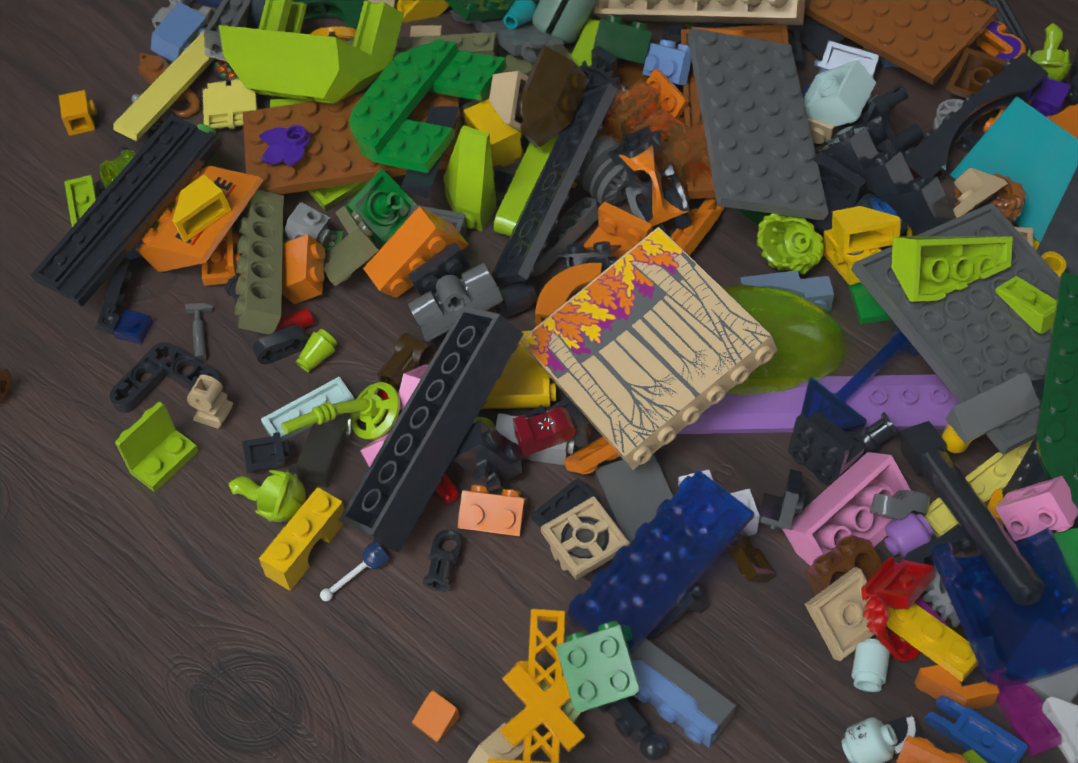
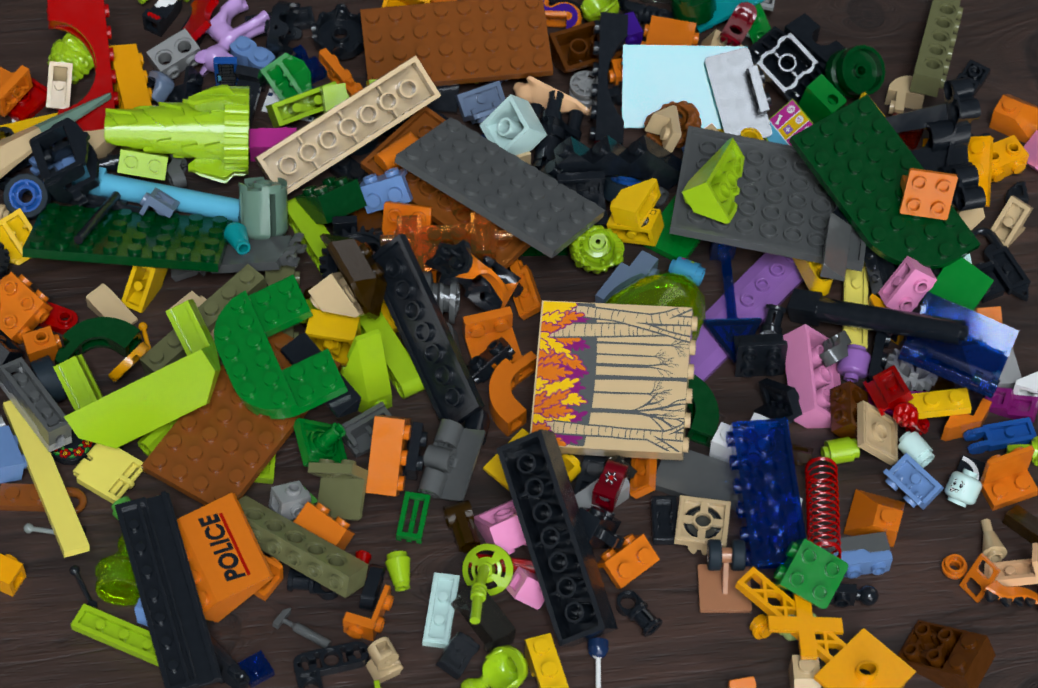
camera: 55 degrees left, 0 degrees up
(199, 207) = (226, 543): yellow slope -> none
(253, 368) = (366, 628): none -> orange bracket
(285, 144) = (214, 462): dark purple plate -> none
(385, 326) = (410, 535): none -> green tile
(547, 590) = (719, 578): none -> nougat plate
(715, 446) = (703, 412): none -> dark green arch
(738, 587) = (808, 499): none -> red piece
(756, 688) = (874, 514): none -> orange slope
(791, 596) = (840, 450): none -> lime brick
(827, 690) = (913, 481): none -> medium blue bracket
(854, 328) = (688, 267): none -> dark azure brick
(915, 108) = (538, 92): none -> light nougat animal
(1029, 303) = (779, 170): lime slope -> none

